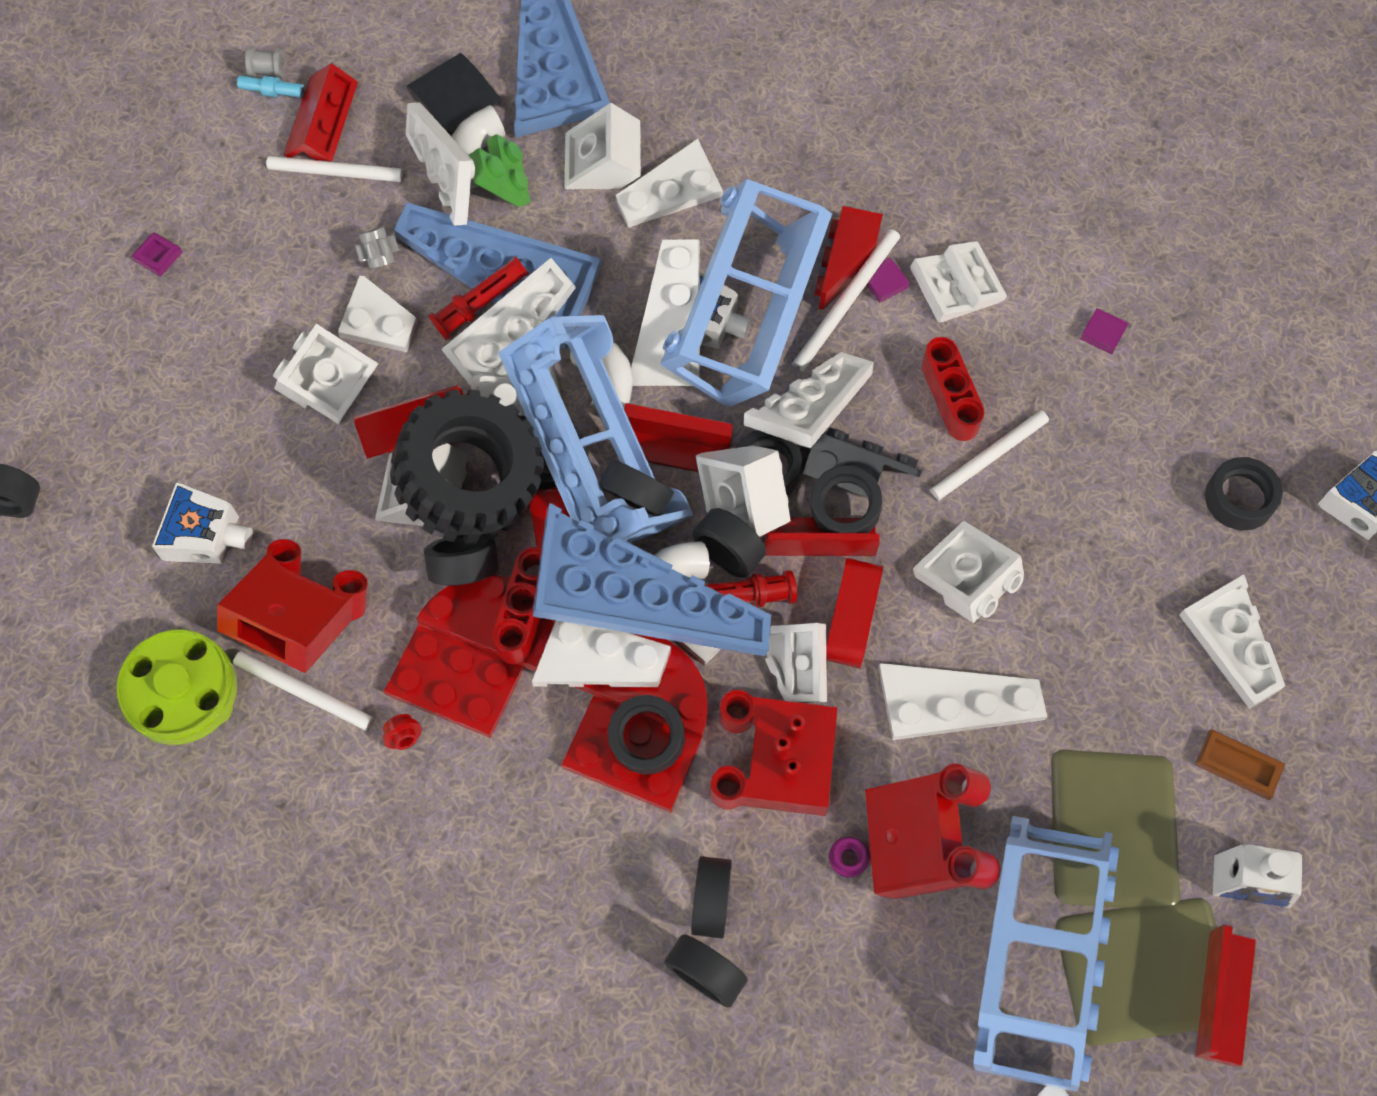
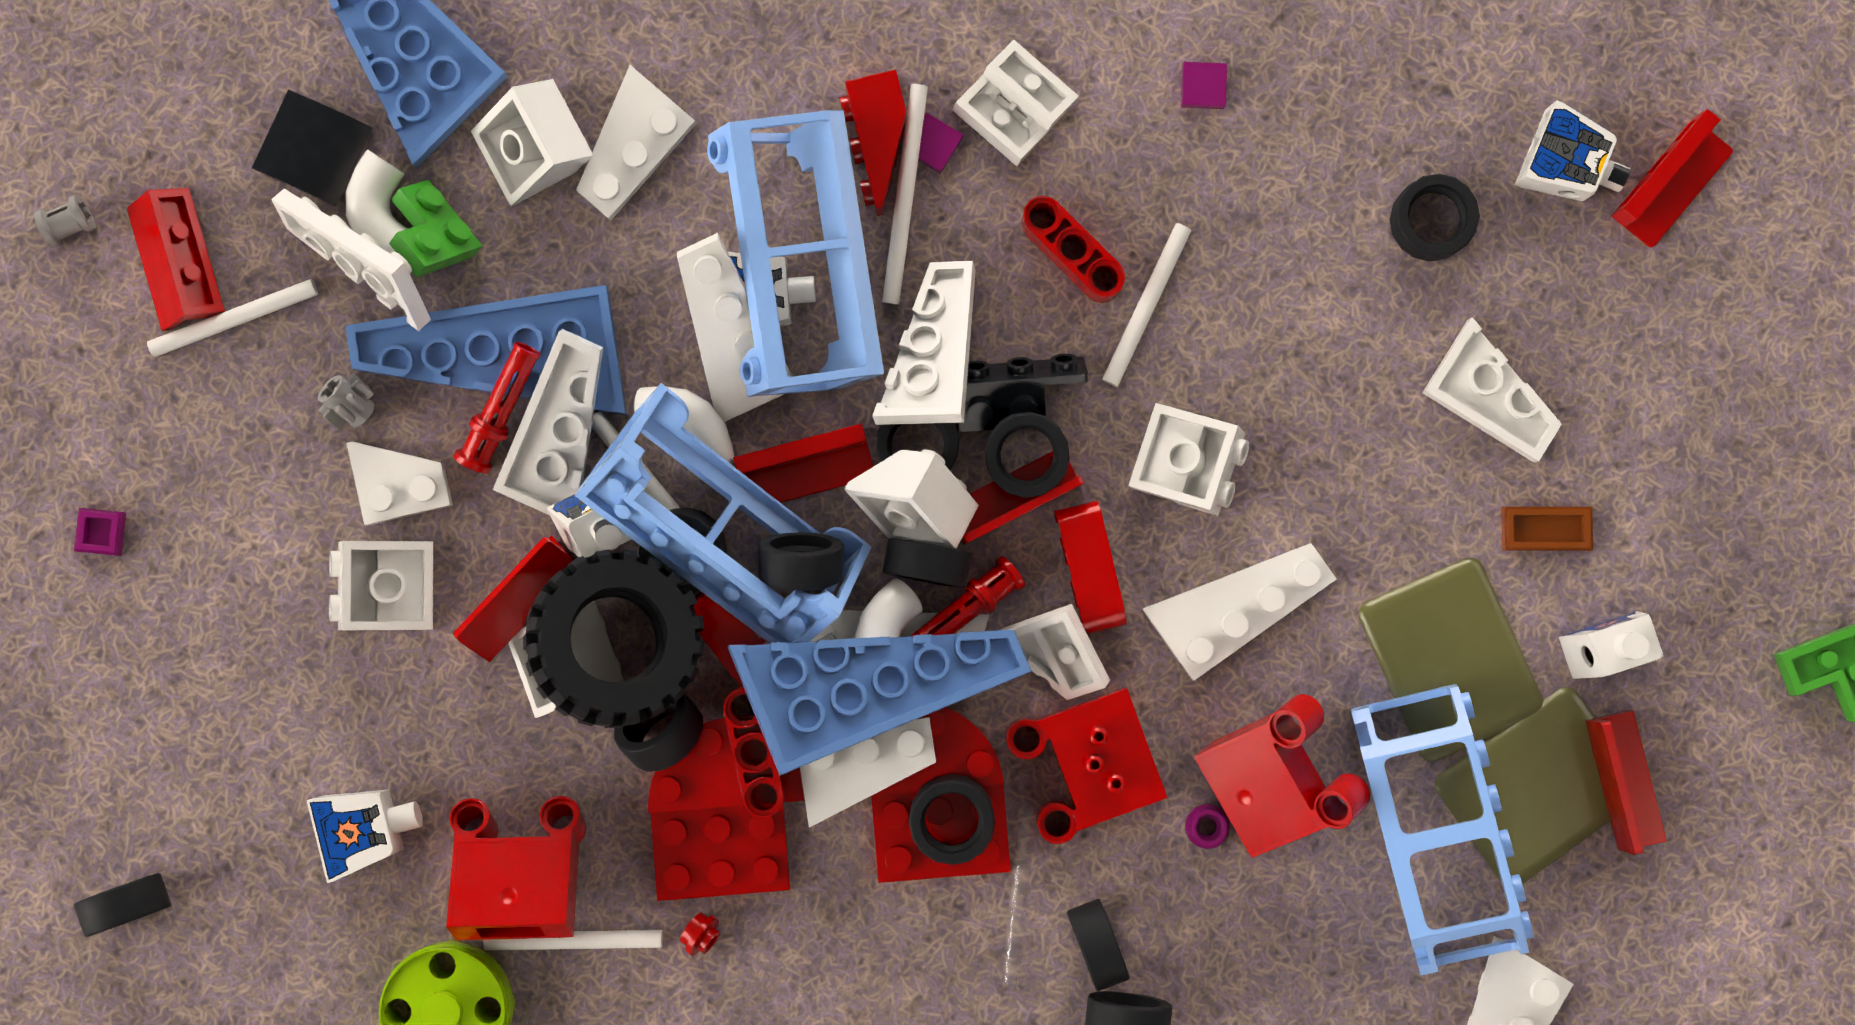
camera: 25 degrees left, 20 degrees up
(270, 86) = (90, 247): medium azure bar -> none

